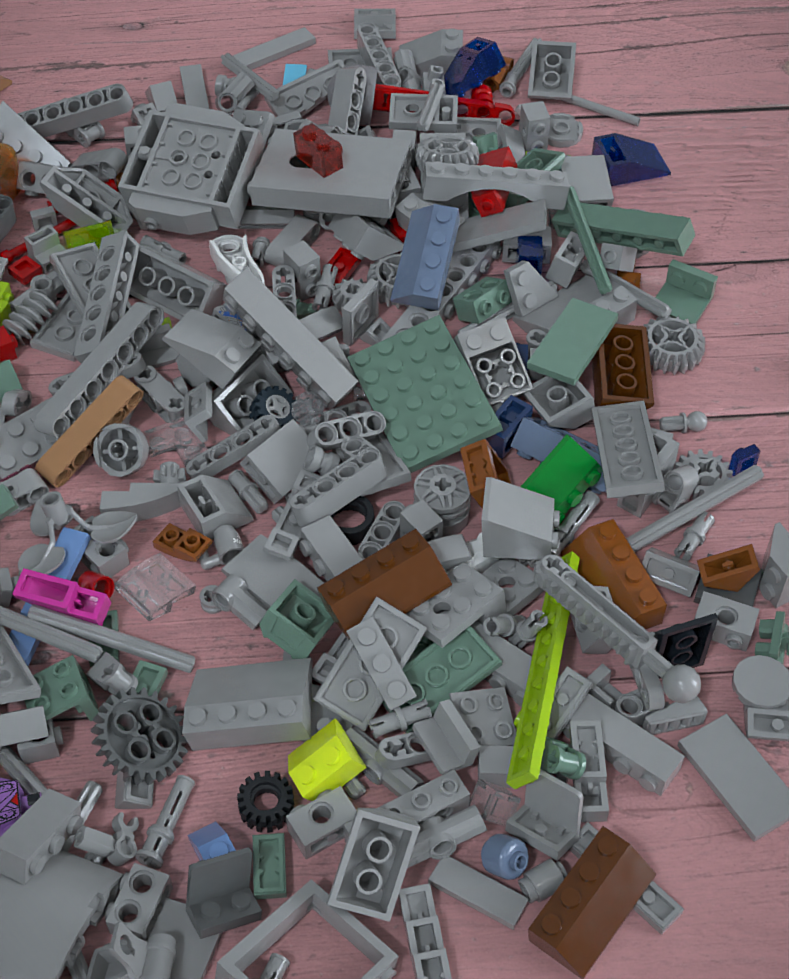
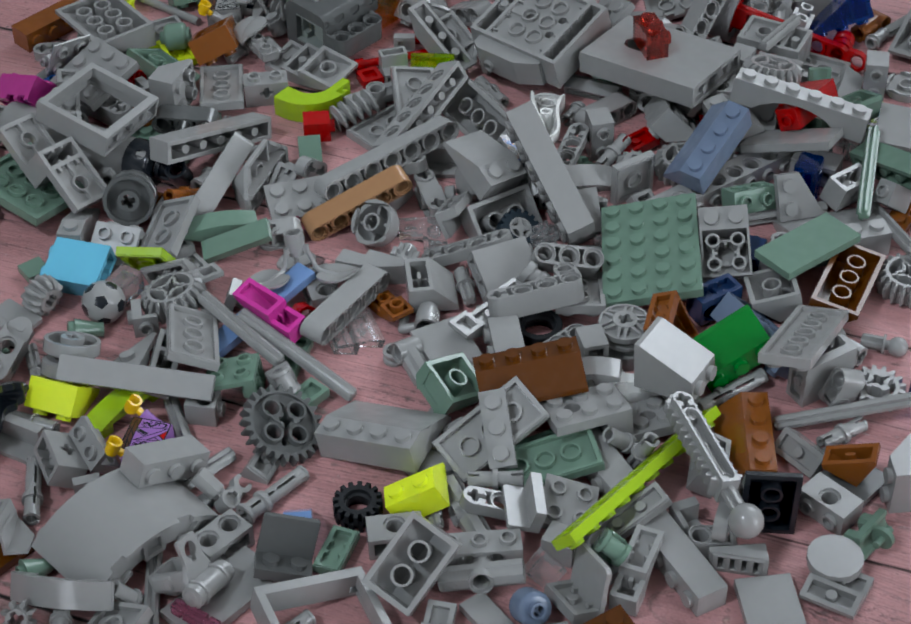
camera: 25 degrees right, 10 degrees down
(137, 561) = (345, 304): none -> light grey beam

